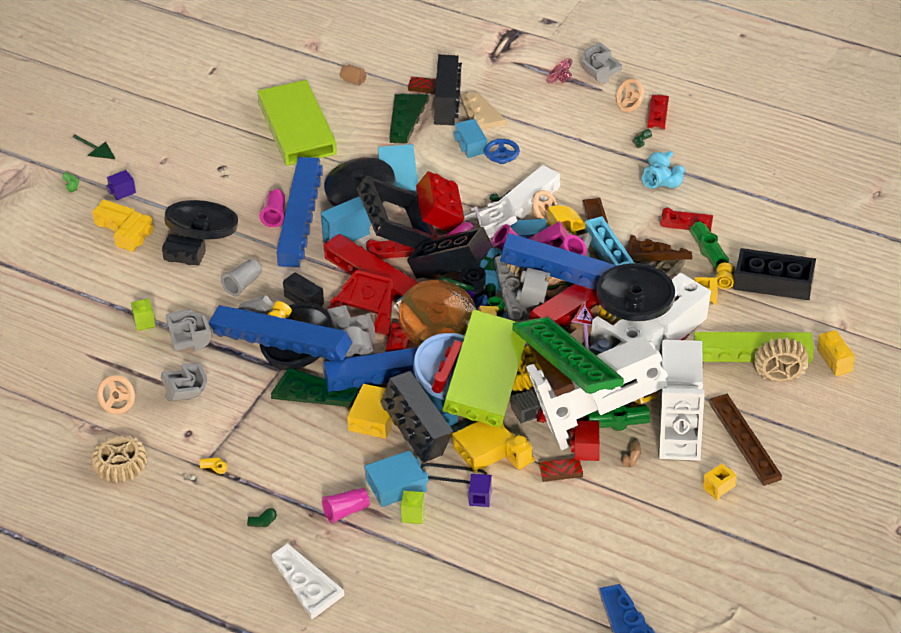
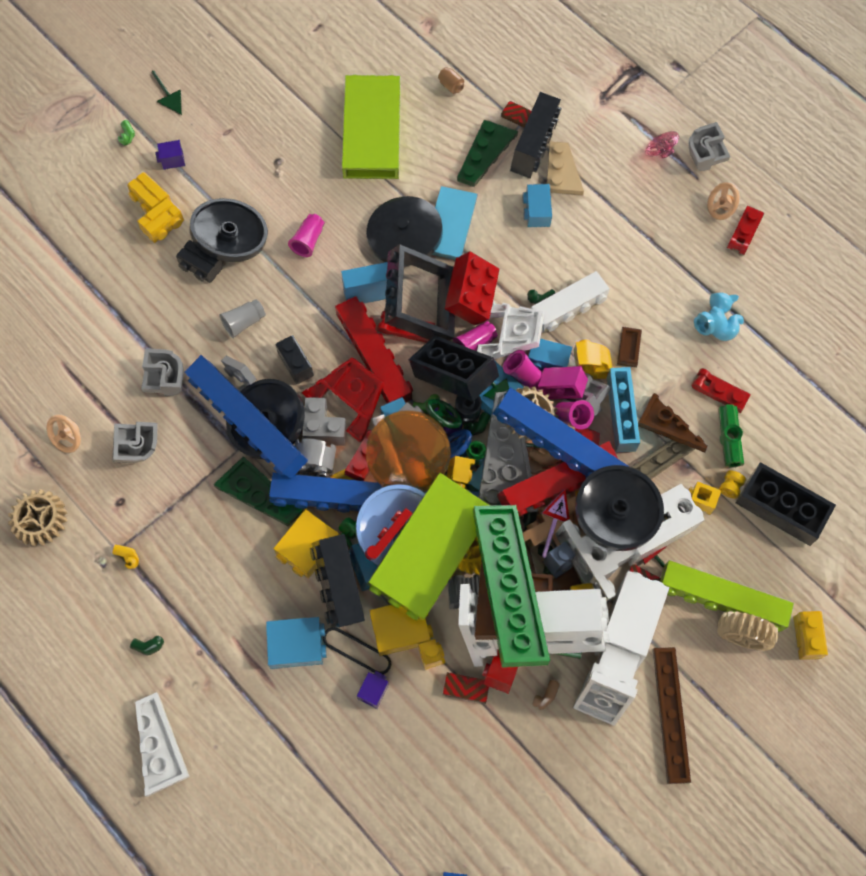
camera: 15 degrees right, 25 degrees up
(143, 314) = (128, 335): lime brick -> none
(280, 310) = (252, 390): yellow wheel -> none
(299, 212) = (330, 249): blue brick -> none
(344, 504) = (232, 660): dark pink plant -> none
(412, 507) = (296, 690): lime brick -> none
(502, 154) = (561, 243): blue piece -> none
(533, 288) = (515, 458): light grey brick -> none
(541, 208) = (577, 327): light nougat piece -> none
(639, 137) = (713, 259): dark green arm -> none
(719, 481) = (629, 762): yellow brick -> none

